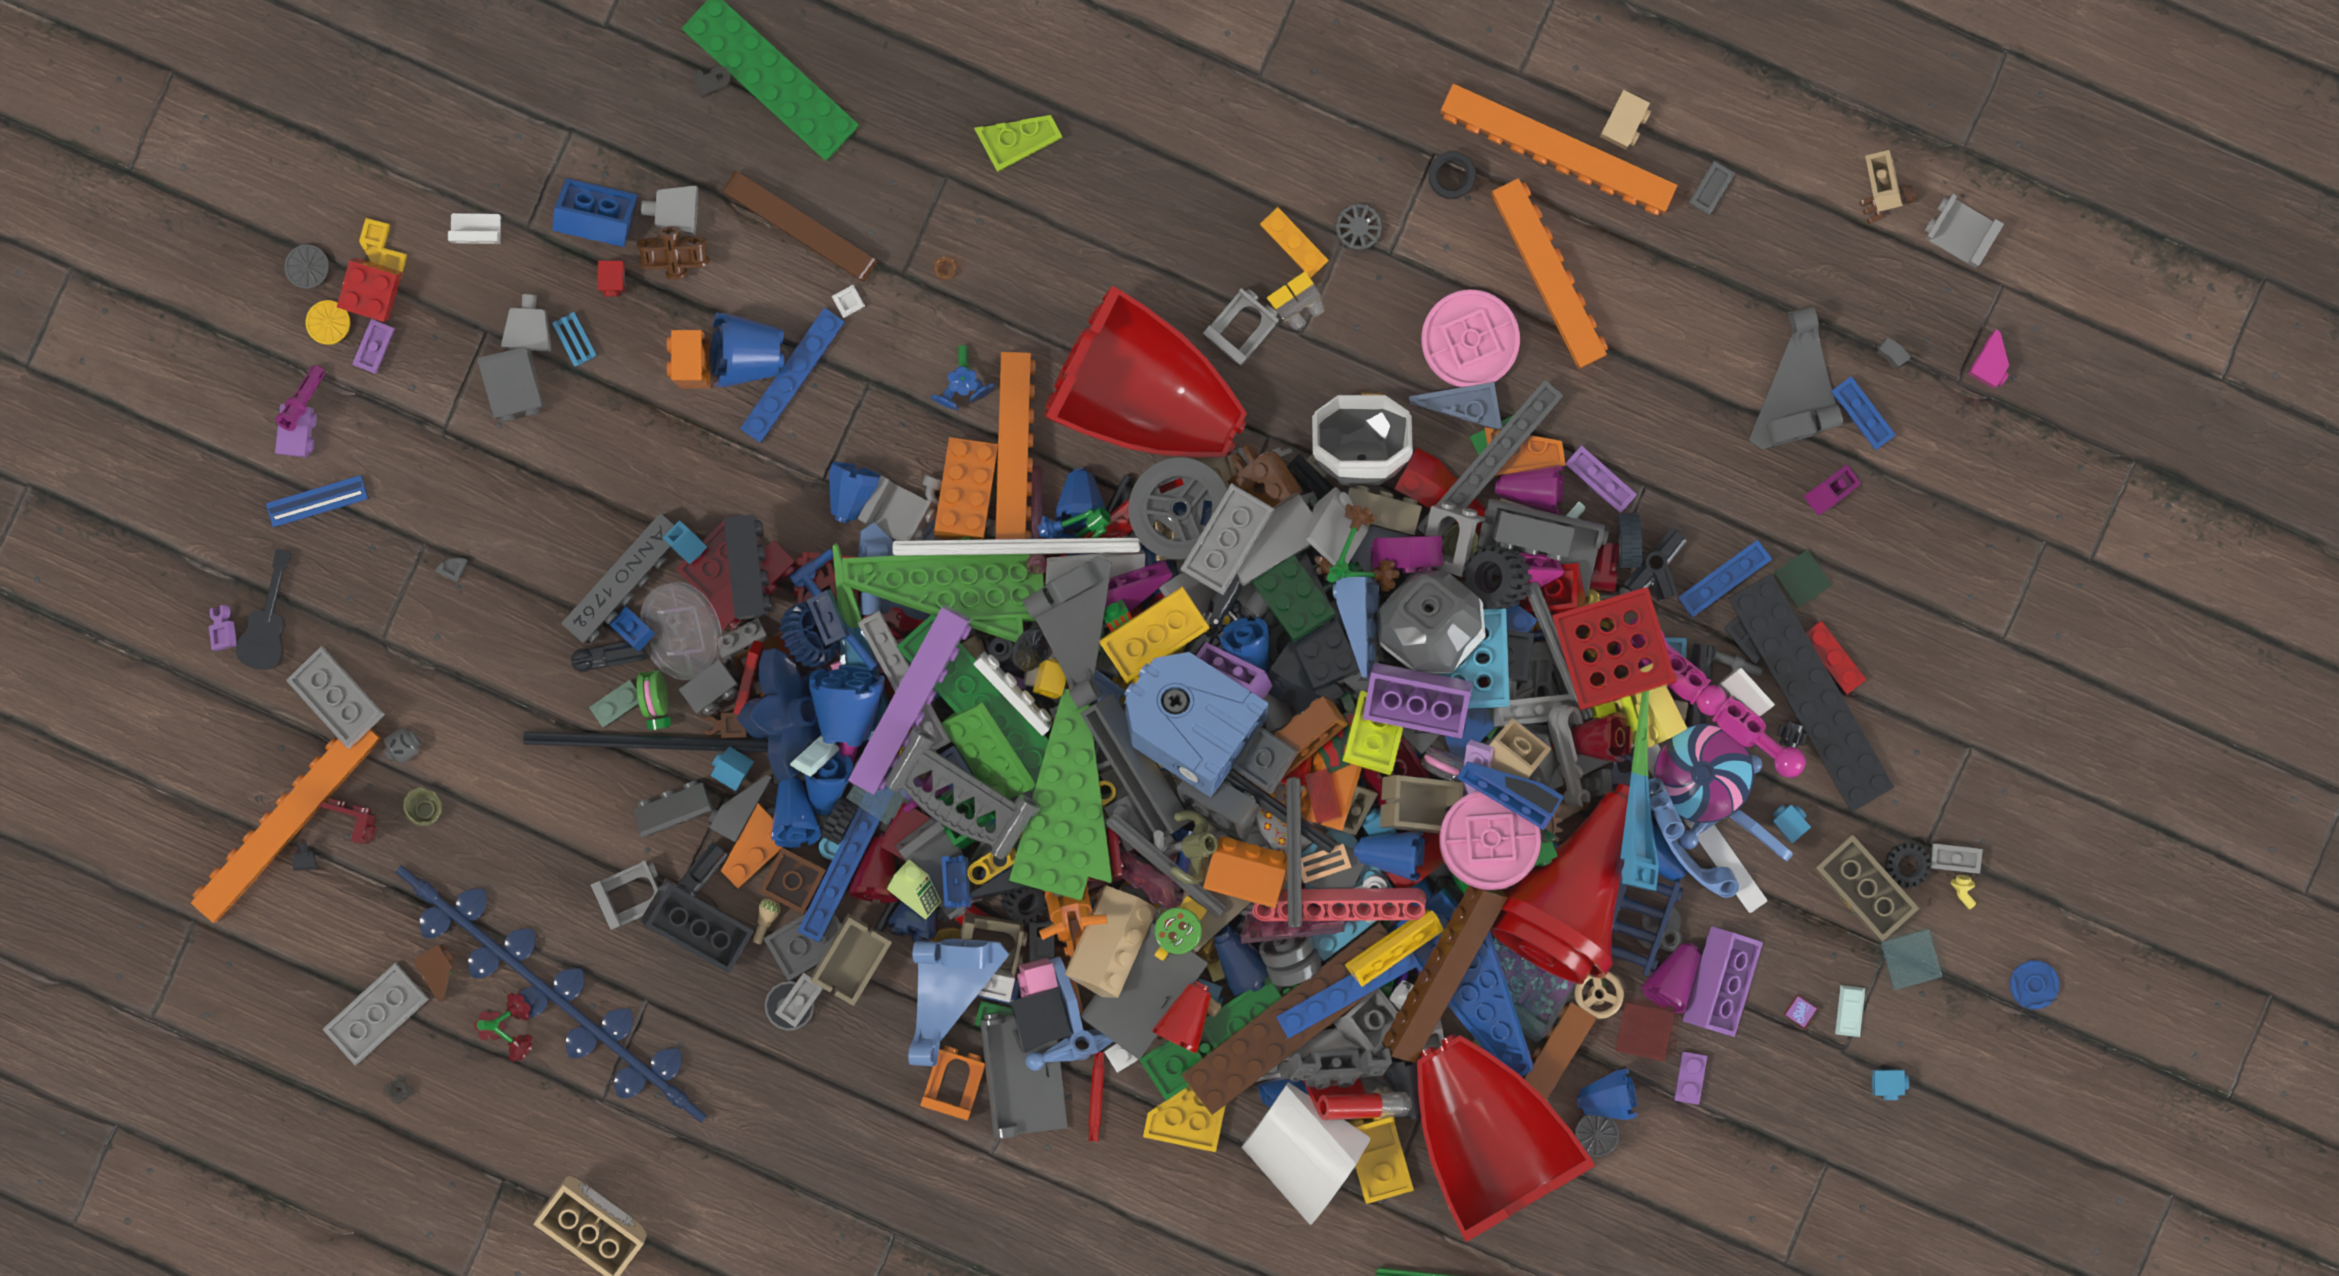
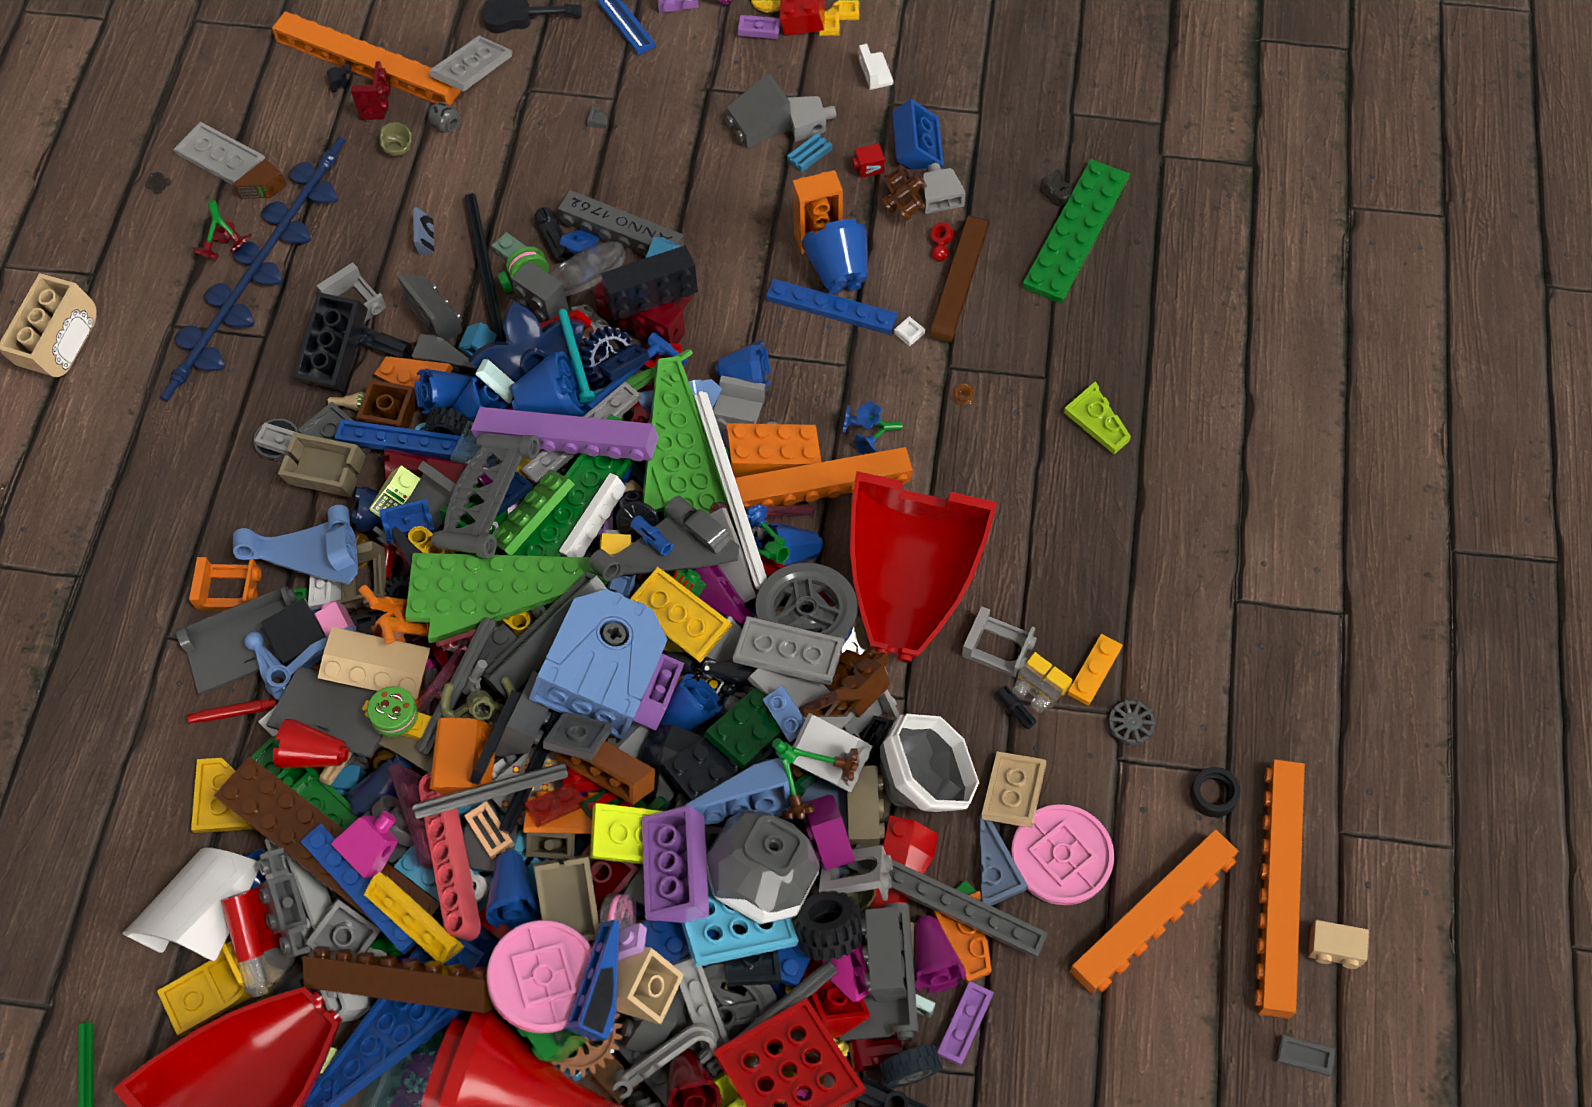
camera: 75 degrees right, 25 degrees down
(561, 799) = (423, 232): none -> sand blue slope
(755, 236) = (940, 251): none -> red plate
(863, 667) = (586, 395): none -> teal bar
(1058, 639) = (651, 535): none -> blue pin
(1241, 836) = (494, 738): none -> black tile
(1292, 560) = (785, 712): none -> medium blue hinge
(1293, 510) = (833, 704): none -> reddish brown wing
(1312, 975) = (368, 843): none -> dark pink torso
(1313, 333) = (1015, 707): none -> black axle
(1397, 363) = (1014, 789): none -> tan plate

